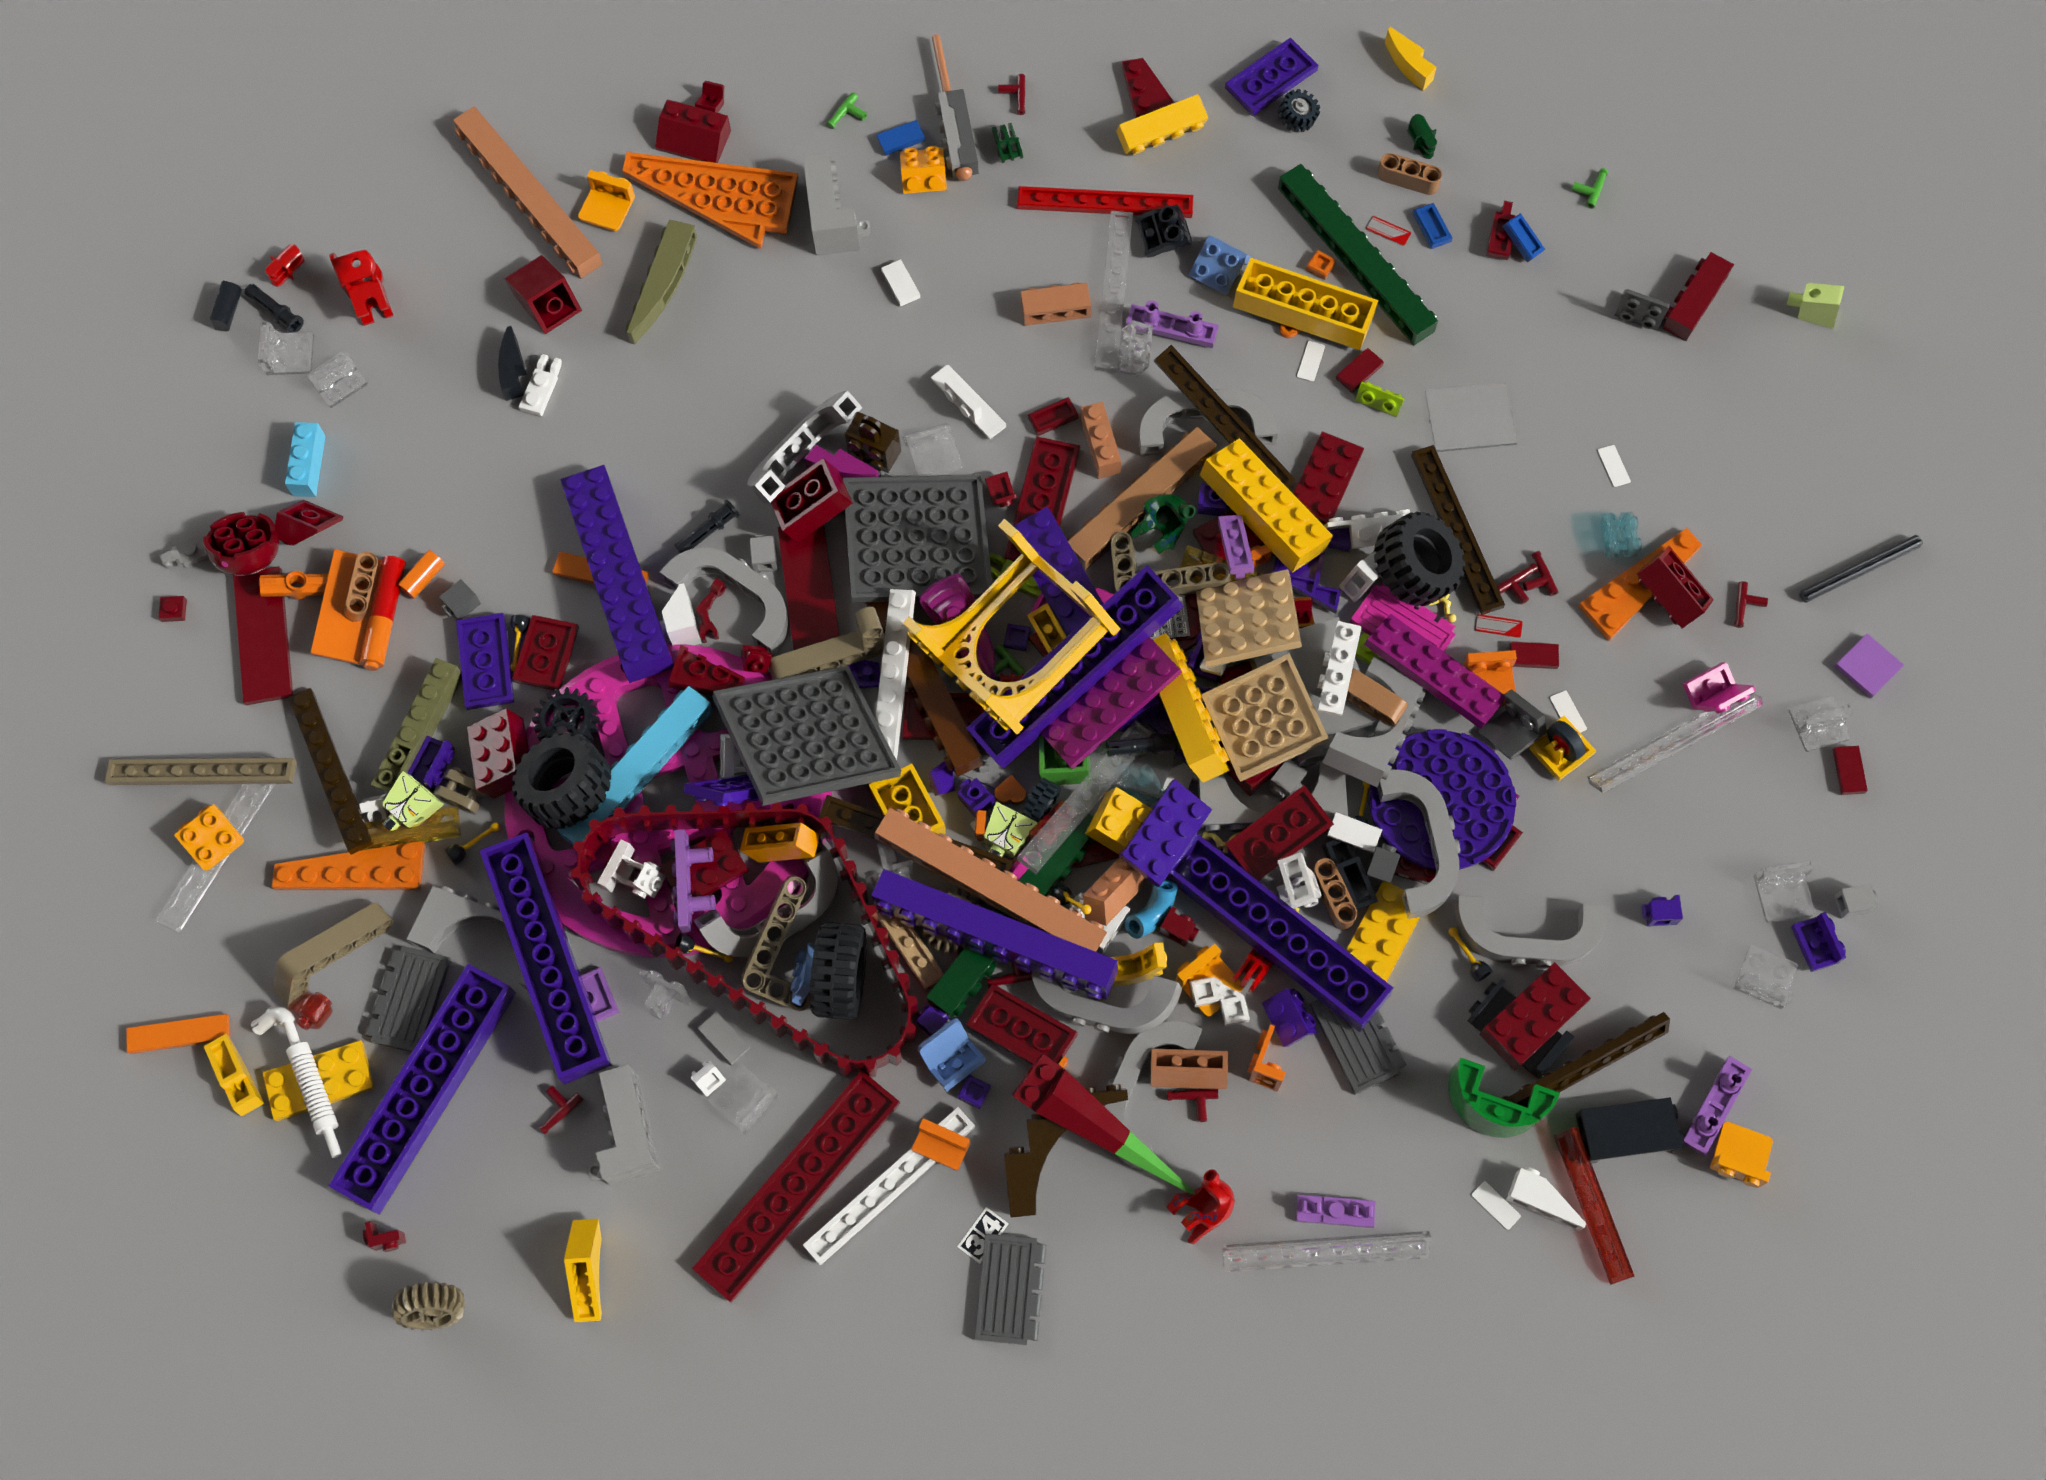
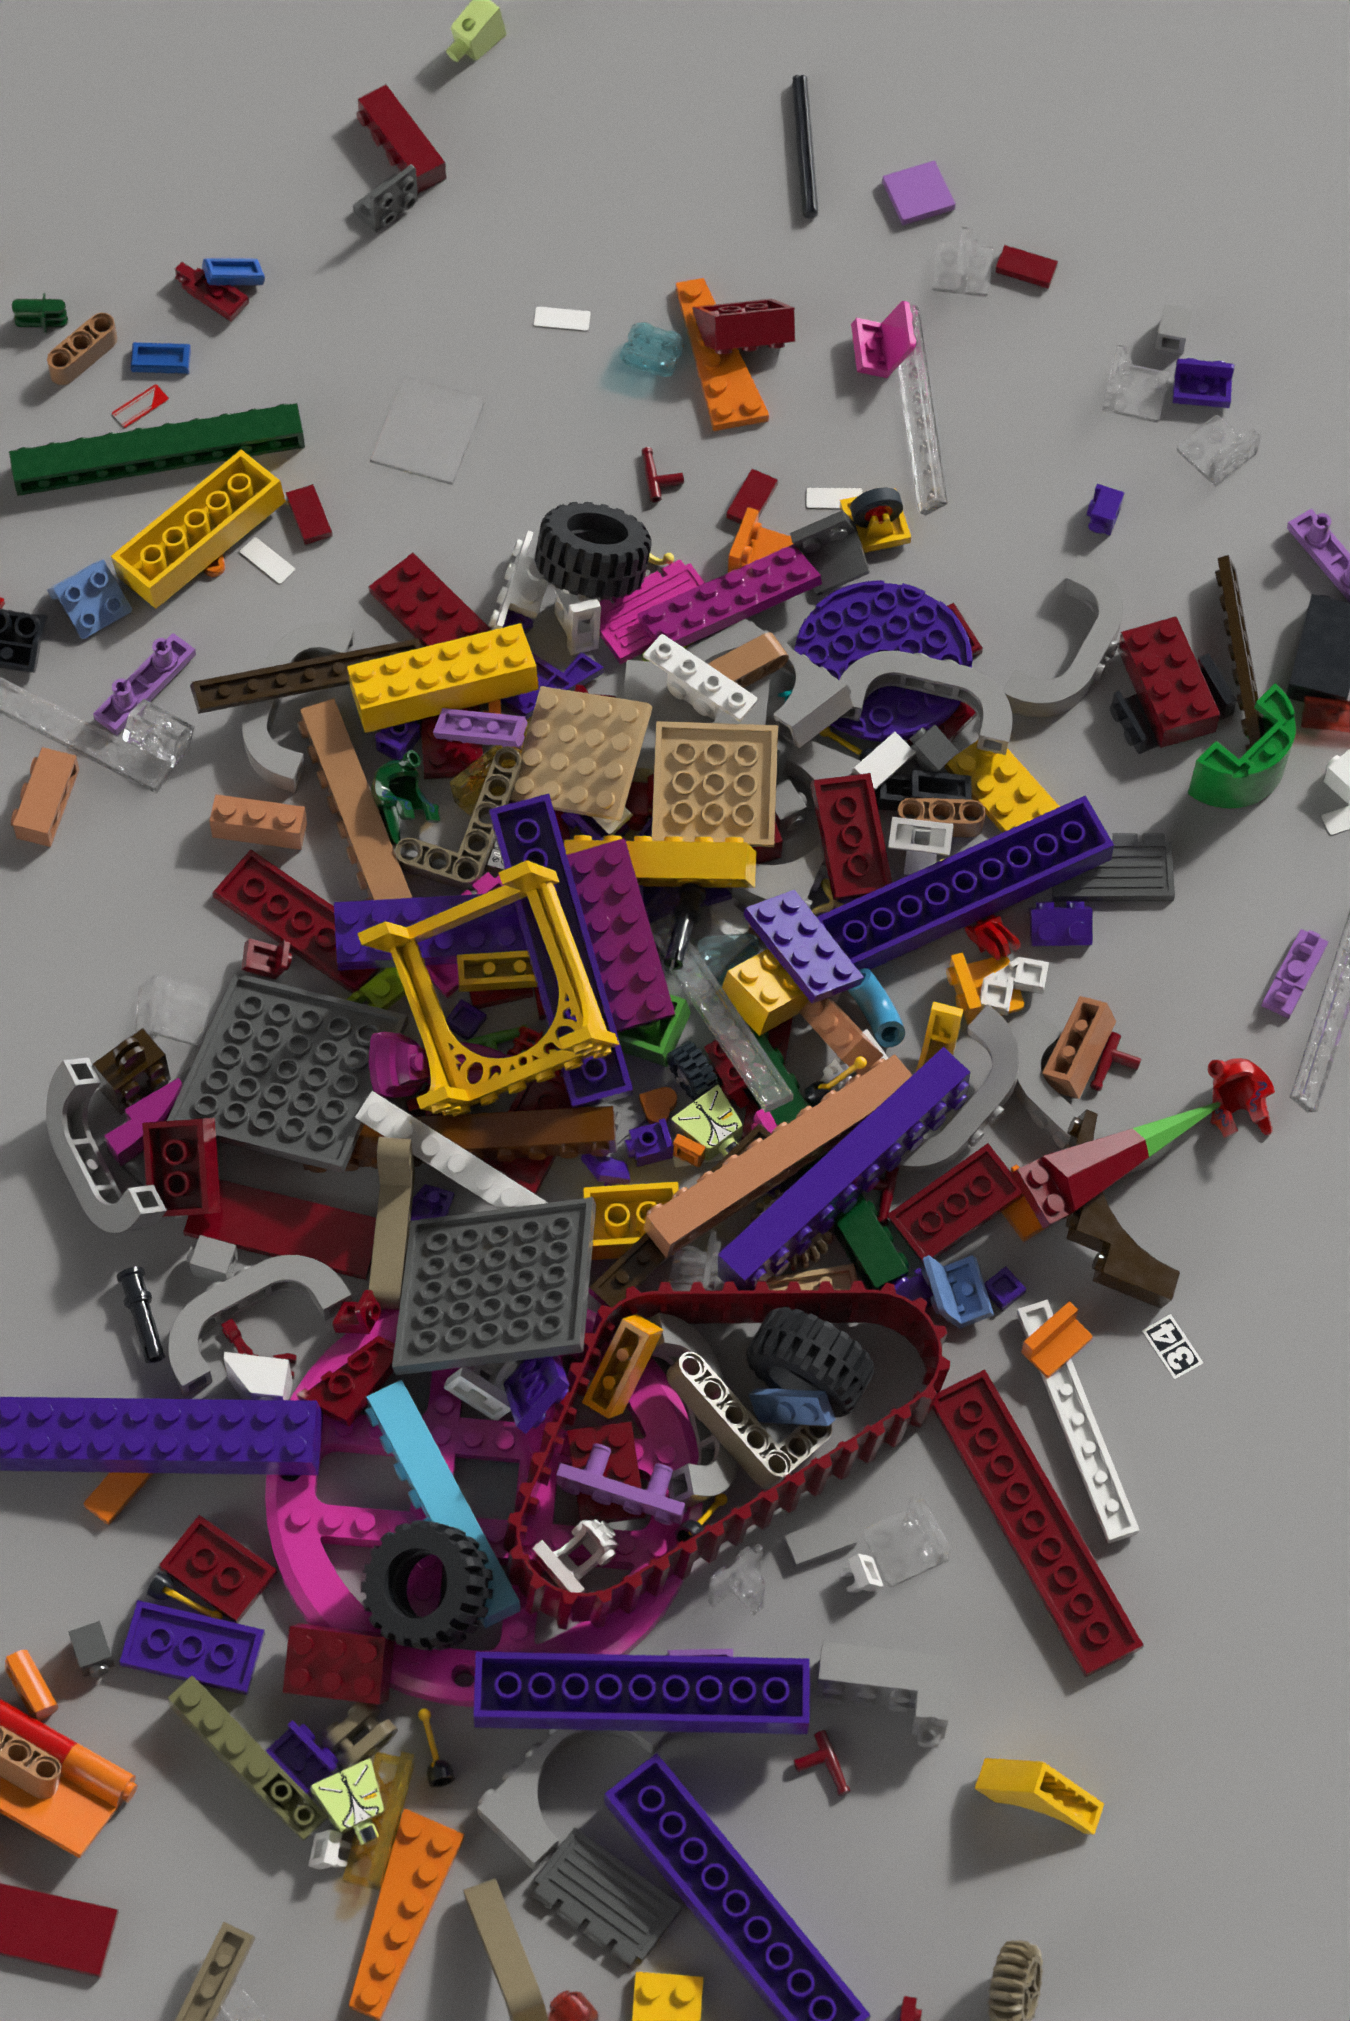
camera: 70 degrees left, 5 degrees down
(331, 771) = (255, 1887): dark brown plate -> none
(556, 705) = (321, 1568): black gear -> none
(968, 401) = (124, 948): white bracket -> none
(1007, 1289) = (1245, 1343): dark grey hinge -> none
(1053, 416) = (193, 863): dark red tile -> none
(1179, 928) = (909, 991): dark red brick -> none
(1268, 1074) = (1106, 974): orange bracket -> none
(1321, 264) = (147, 494): orange tile -> none
(1377, 398) = (361, 508): lime hinge -> none
(1450, 511) = (538, 501): dark brown plate -> none
(1479, 969) = (1088, 714): hinge -> none
(1499, 625) = (698, 518): sticker -> none
(1545, 579) = (667, 447): dark red piece -> none
(1594, 192) = (209, 178): bright green piece -> none
(1743, 599) = (785, 270): dark red piece -> none

